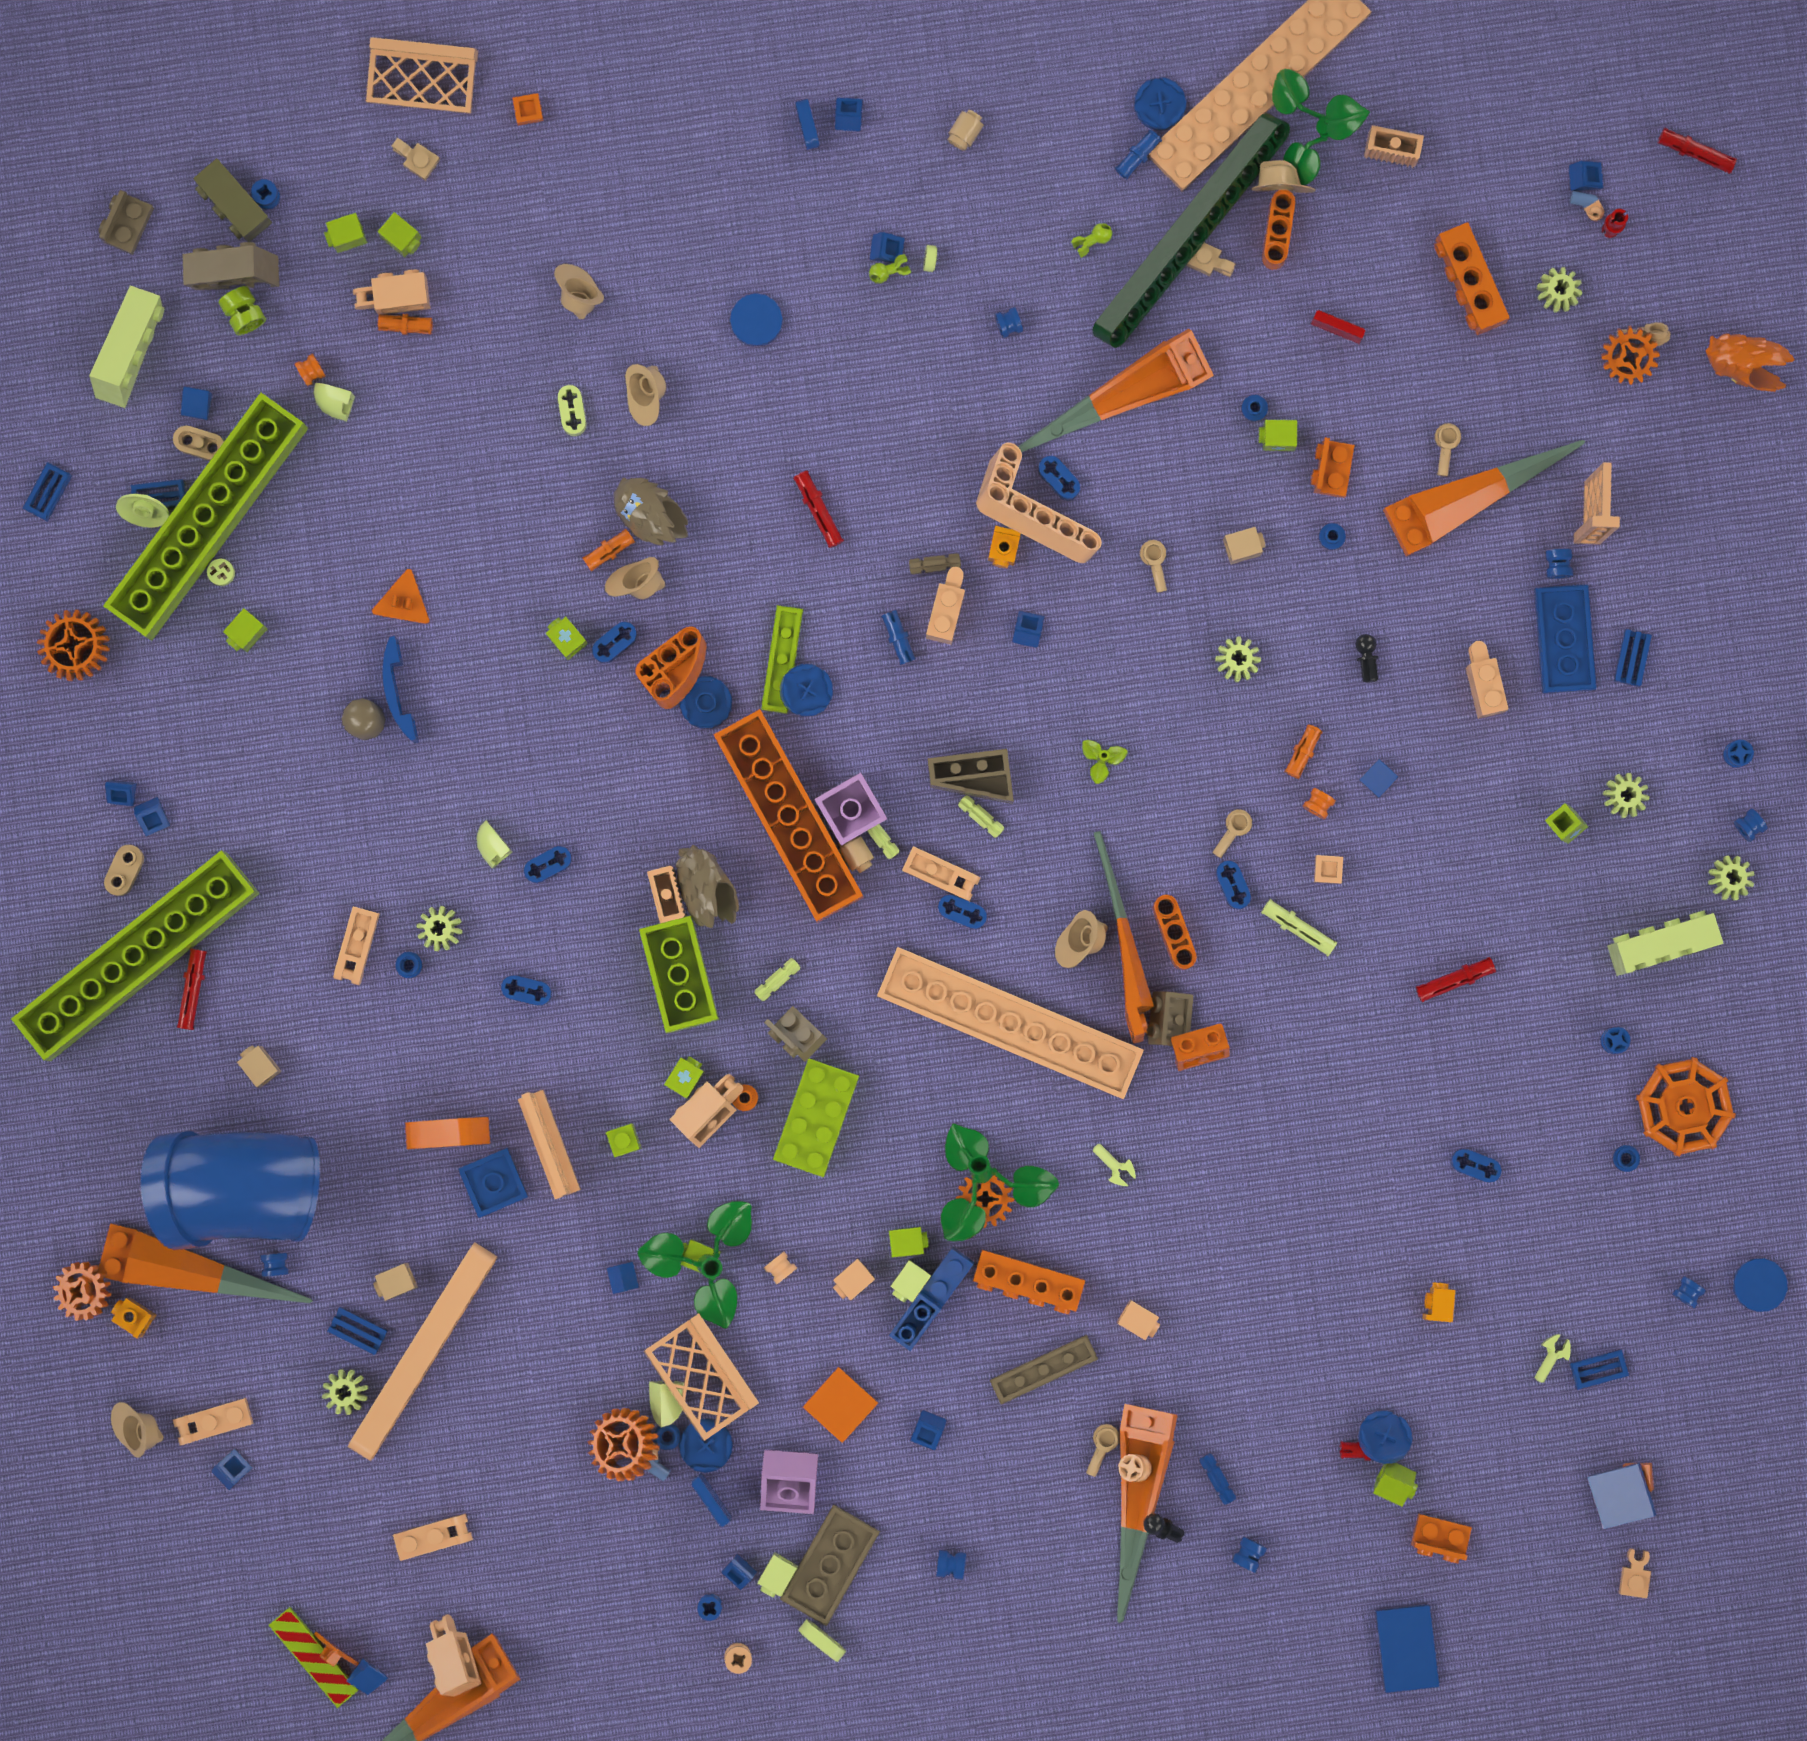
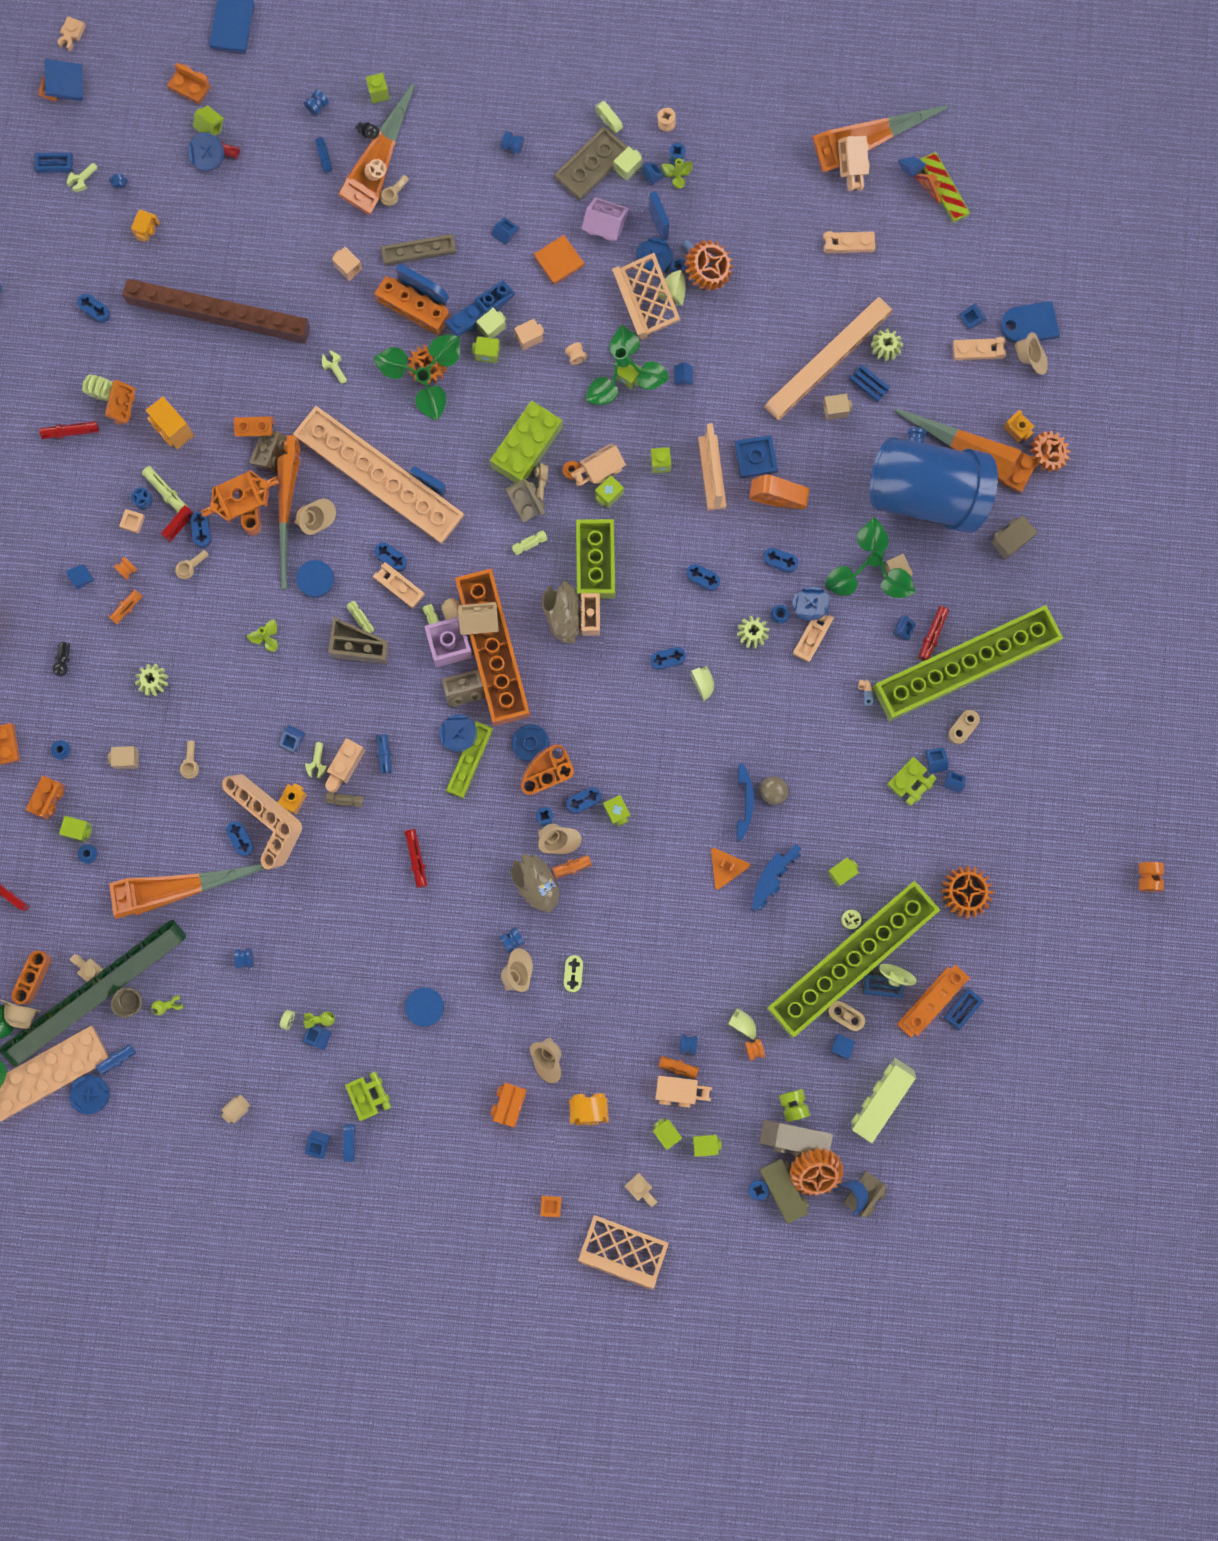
camera: 170 degrees left, 5 degrees down
(88, 485) = (932, 1001): none -> orange fence
(108, 1154) = (1014, 537): none -> dark tan brick
(135, 223) = (859, 1191): none -> blue helmet
(147, 1480) = (1034, 318): none -> blue tile
(186, 782) = (907, 776): none -> lime plate
(194, 230) = (816, 1172): none -> orange gear
(234, 988) = (904, 627): none -> blue slope
(262, 880) = (868, 692): none -> arm
(296, 1083) = (874, 538): none -> green plant
(342, 591) = (768, 882): none -> blue slope
(368, 988) = (811, 603): none -> tile
(398, 355) = (688, 1044): none -> blue wheel
(425, 1035) = (779, 564): none -> blue beam
(507, 237) = (588, 1110): none -> light orange brick
(612, 221) = (509, 1104): none -> orange brick
(656, 599) = (544, 810): none -> blue bush
(663, 433) = (512, 939): none -> blue wheel
(694, 1590) = (680, 169): none -> lime plant
(784, 1081) = (541, 473): none -> tan plate
(806, 184) = (362, 1098): none -> lime plate
(815, 753) = (463, 688): none -> dark tan bracket
(815, 845) = (478, 618): none -> tan panel
(939, 1031) = (428, 480): none -> blue tile
(986, 607) = (316, 761): none -> yellowish green bar
(1019, 1308) = (421, 284): none -> blue tile
(1057, 855) = (315, 578): none -> blue tile
(1145, 228) = (126, 1002): none -> dark tan hair
(1166, 1598) = (377, 88): none -> lime brick
(1168, 943) = (254, 495): none -> orange plate
(1266, 882) = (177, 524): none -> red tile
(1301, 1202) = (216, 311): none -> copper brick
(1317, 1018) = (169, 423): none -> light orange brick
(1328, 903) = (141, 494): none -> blue wheel
(1393, 1032) = (120, 402): none -> orange bracket
(1430, 1046) = (97, 387): none -> yellowish green gear
(1497, 1362) = (118, 180): none -> blue plate

